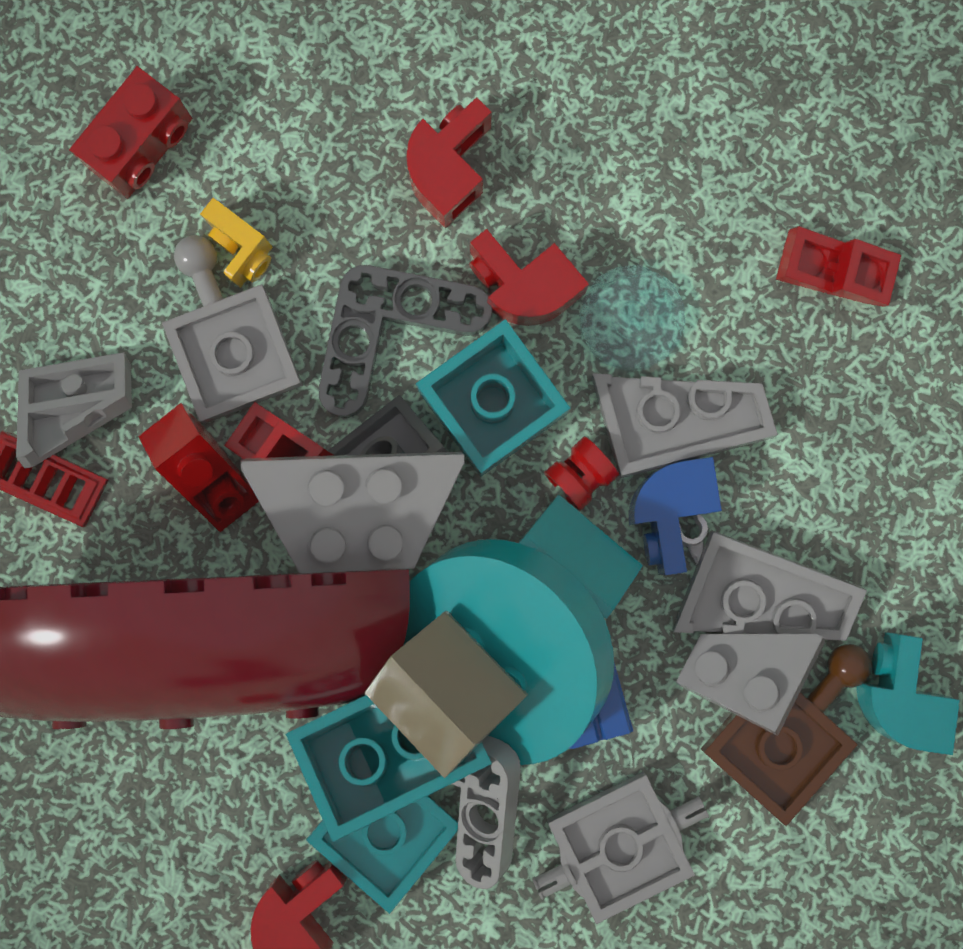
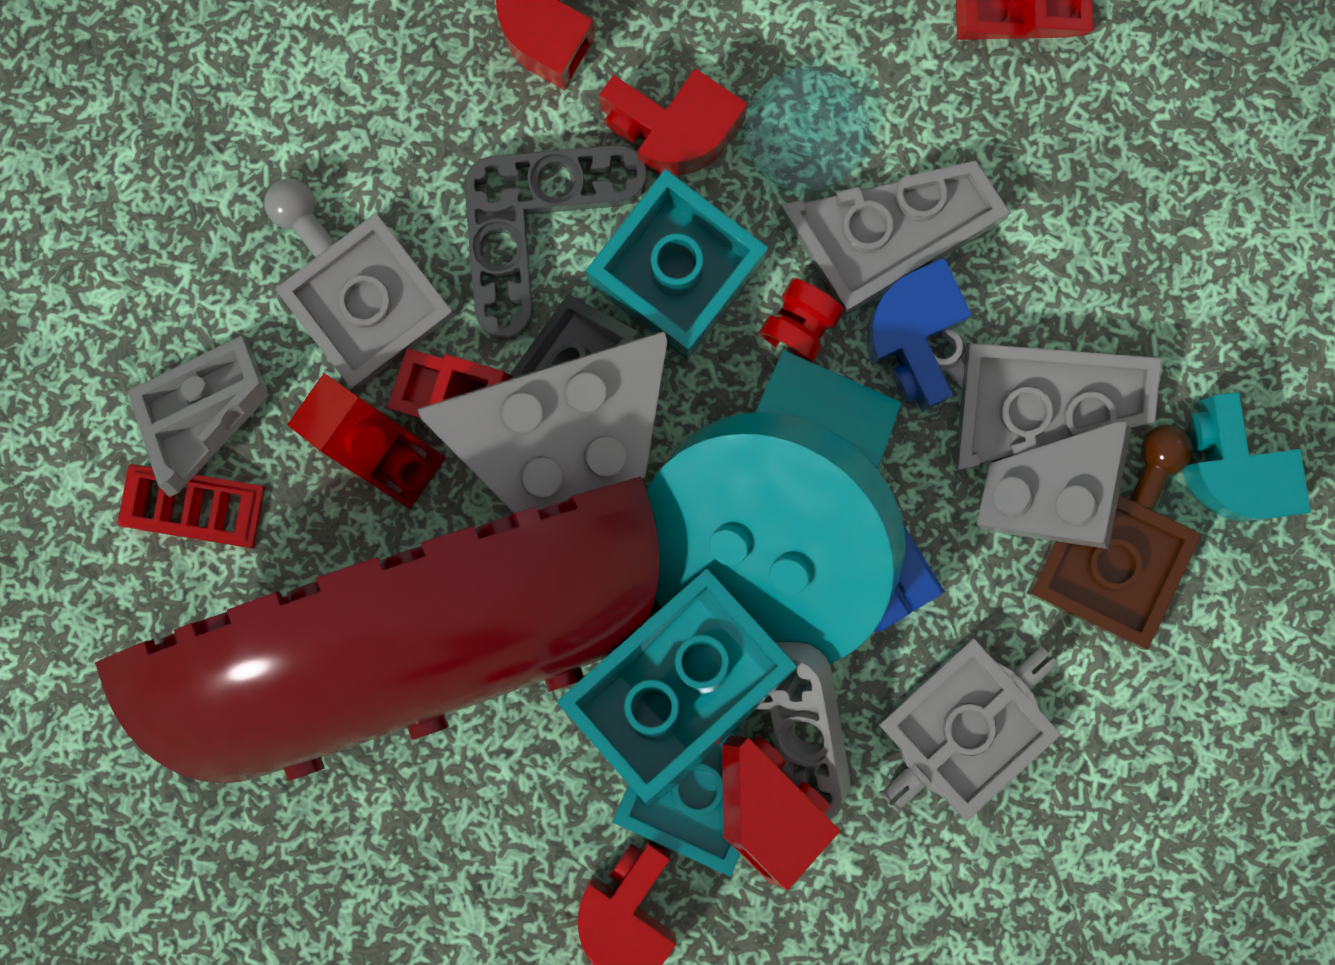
camera: 10 degrees left, 0 degrees up
(132, 133) = (178, 83): red brick -> none
(234, 233) = (327, 163): yellow bracket -> none
(433, 875) = (768, 816): none -> red slope
(444, 692) = (721, 602): dark tan slope -> none

